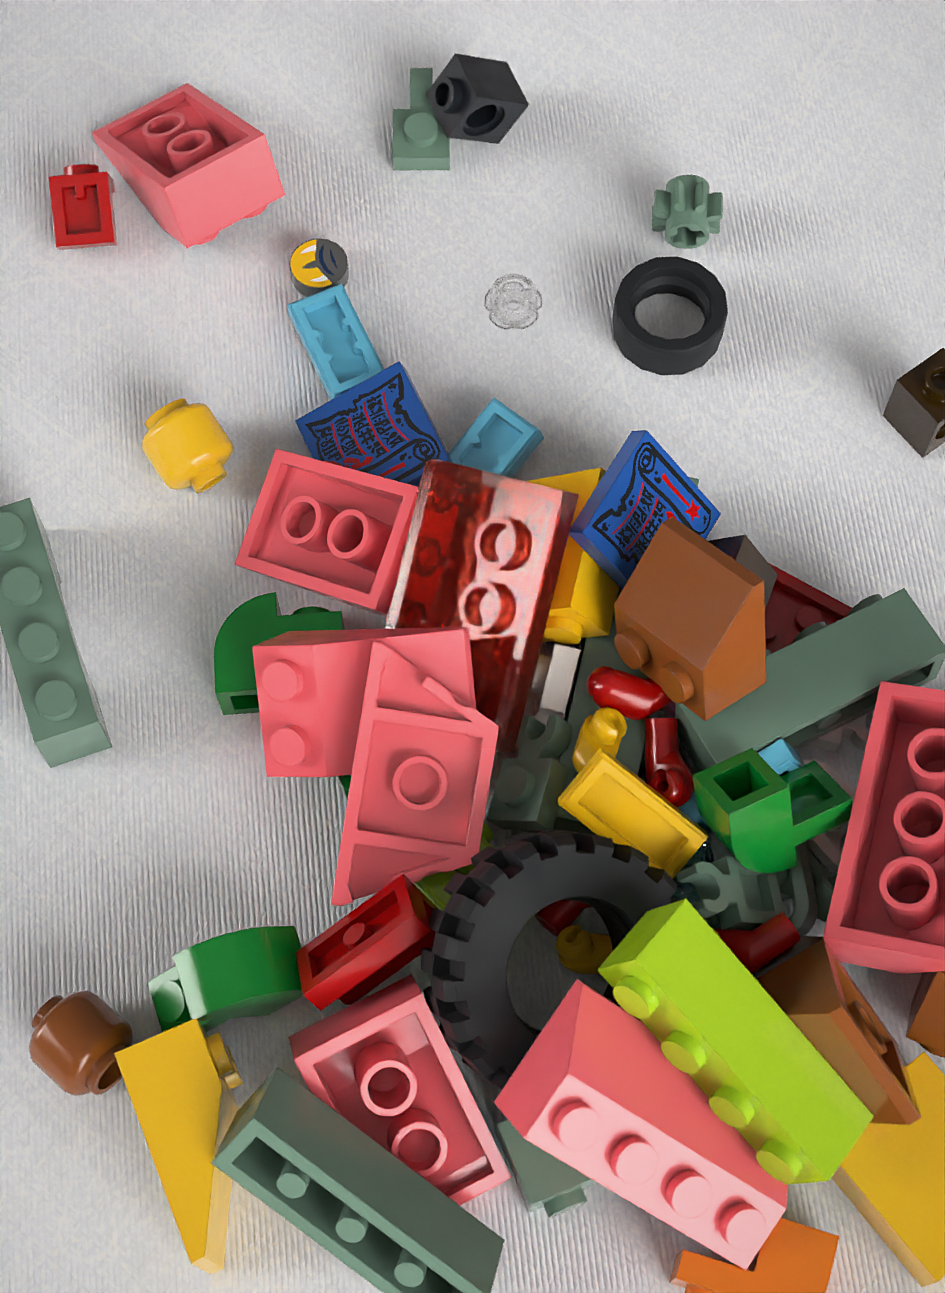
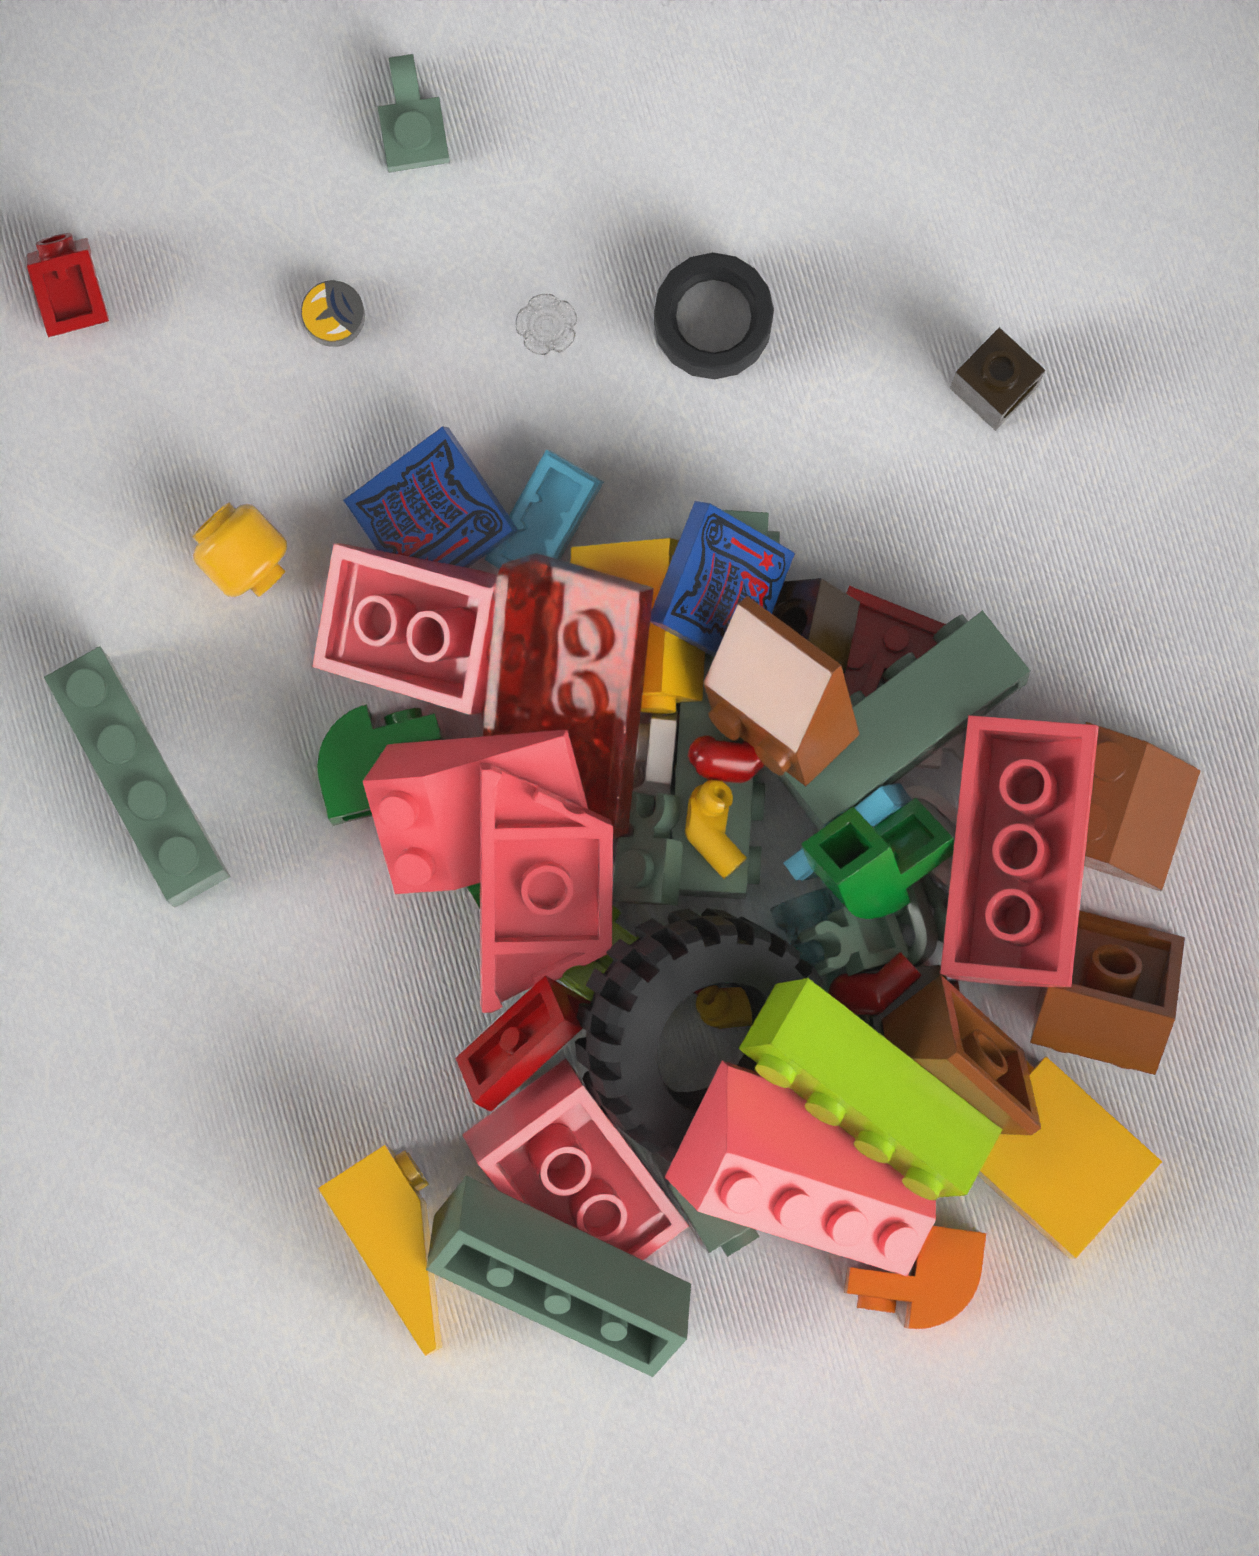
camera: 10 degrees left, 15 degrees up
(78, 1042) = (272, 1173): dark orange head -> none
(192, 164) = (167, 209): coral slope -> none
(229, 978) = (396, 1095): green brick -> none
(334, 340) = (369, 403): medium azure plate -> none
(477, 99) = (468, 88): black brick -> none
(631, 813) = (750, 885): yellow tile -> none
(663, 763) = (775, 825): red arm -> none
(687, 211) = (716, 189): sand green gear -> none

